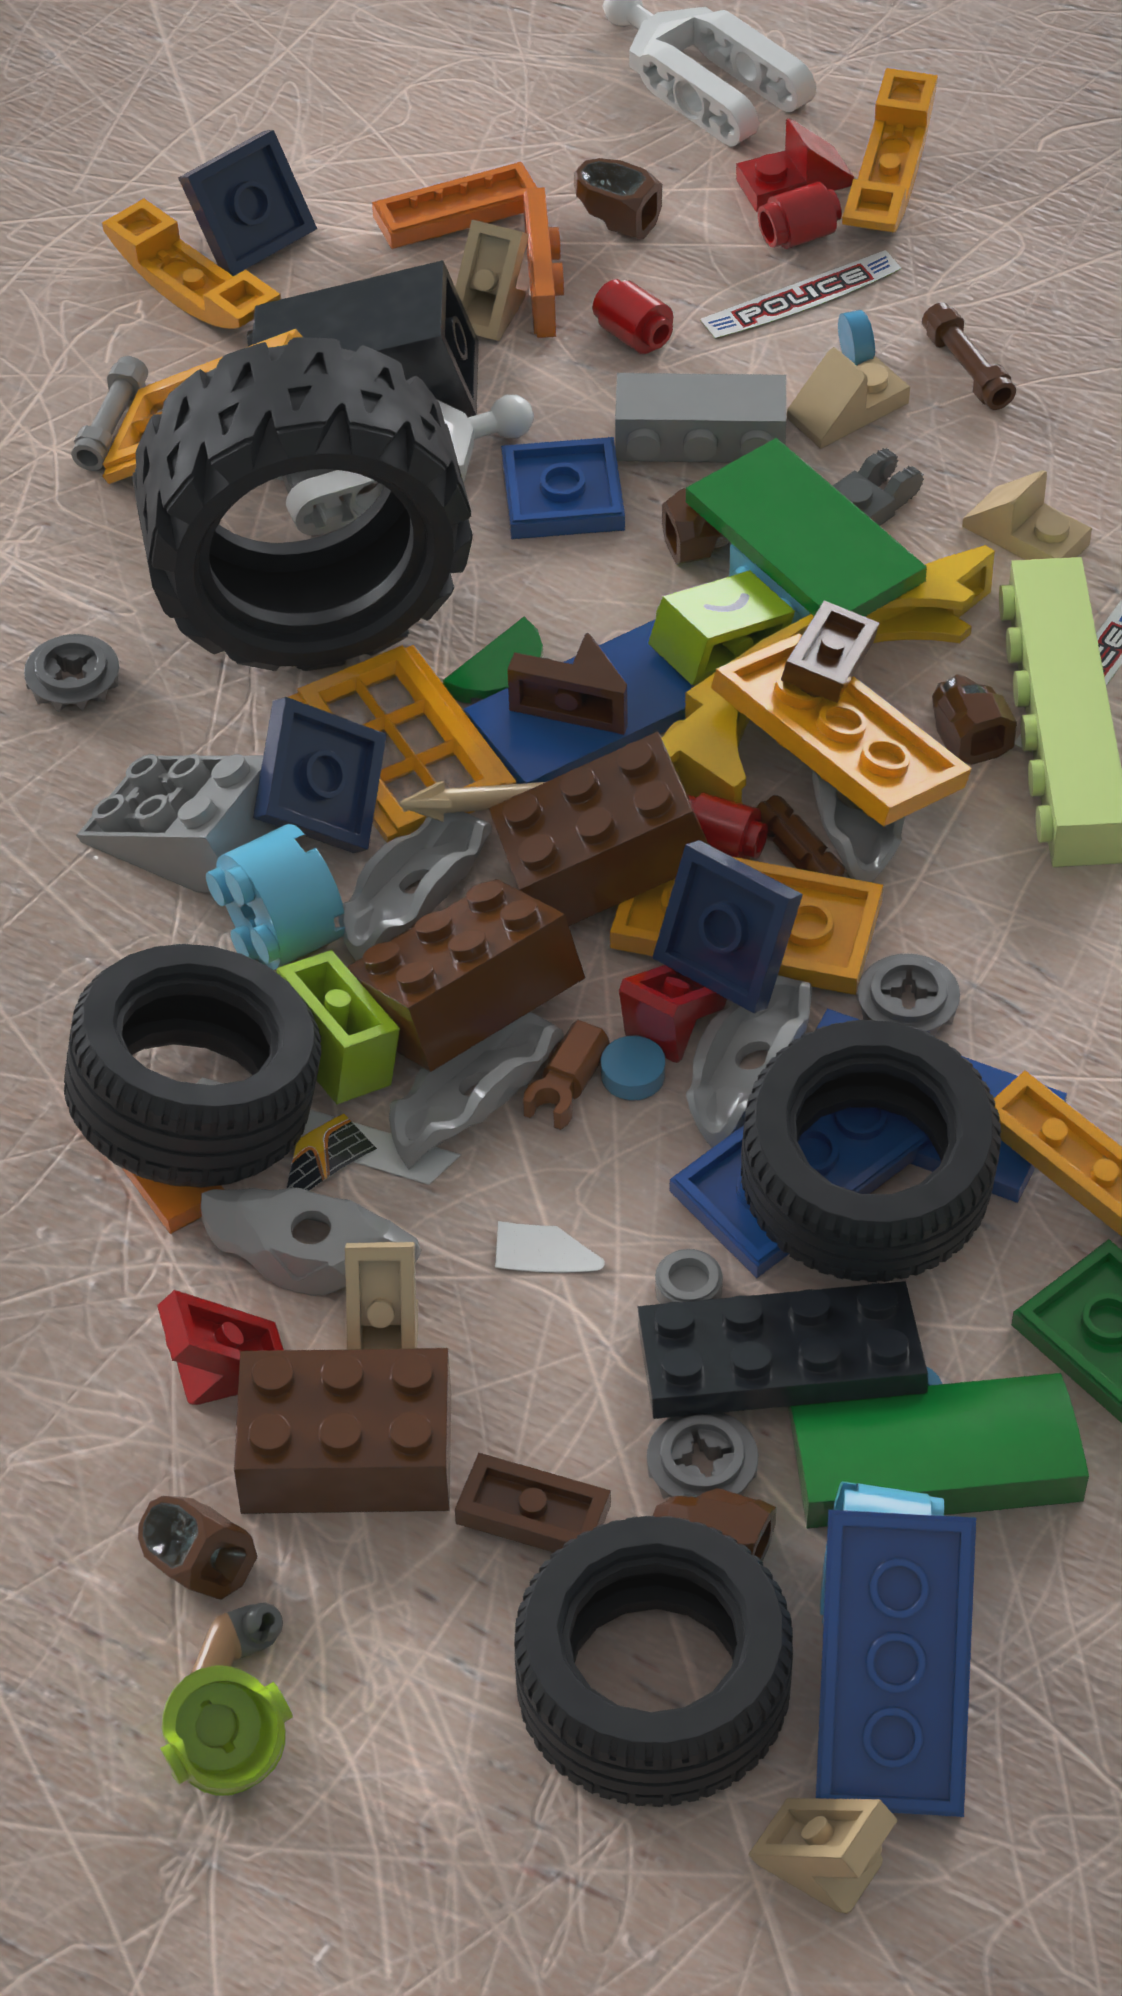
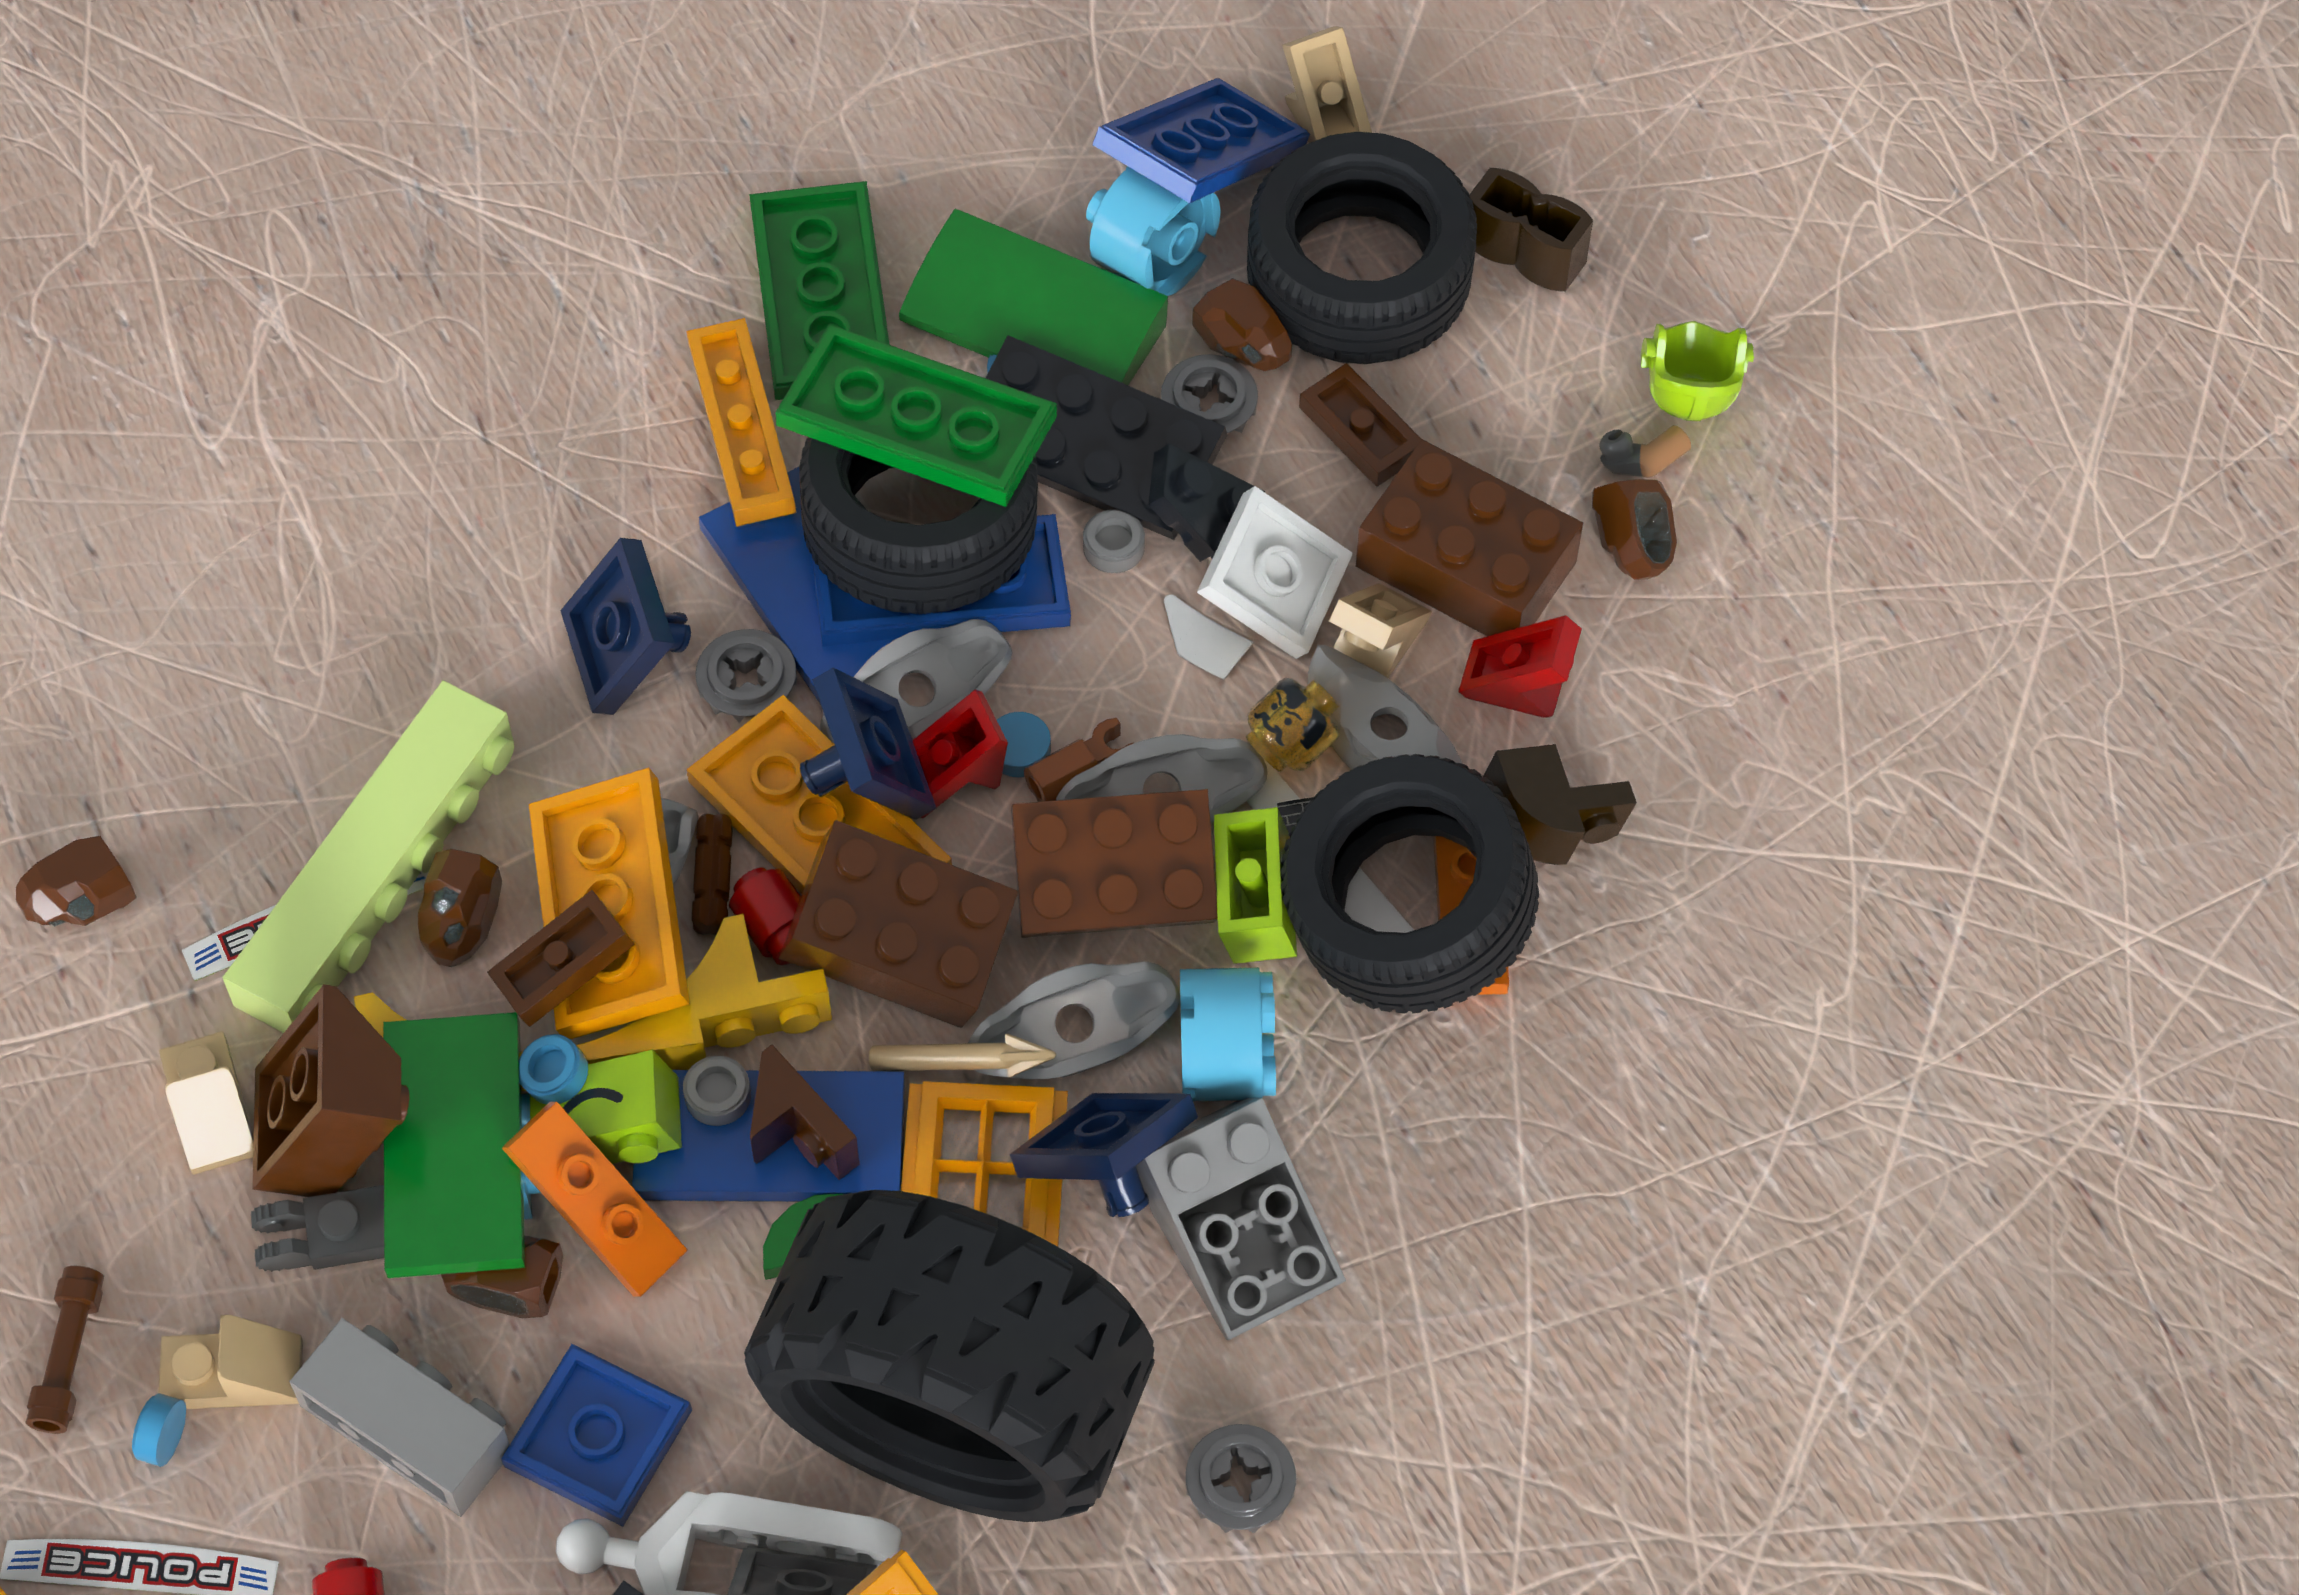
camera: 150 degrees left, 10 degrees up
(113, 1214) = (1550, 810): none -> dark brown brick
(396, 1176) = (1293, 724): none -> clear yellow head
(490, 1787) = (1529, 229): none -> dark brown brick
(507, 1297) = (1275, 572): none -> white plate
(606, 1319) = (1194, 498): none -> black wing
(655, 691) = (717, 1090): none -> light grey tile
(676, 565) = (594, 1199): none -> orange plate
(776, 606) = (552, 1069): none -> dark azure tile
(908, 1150) = (916, 415): none -> green tile
(909, 488) = (324, 1099): none -> reddish brown slope
(1027, 949) = (620, 626): none -> dark blue tile

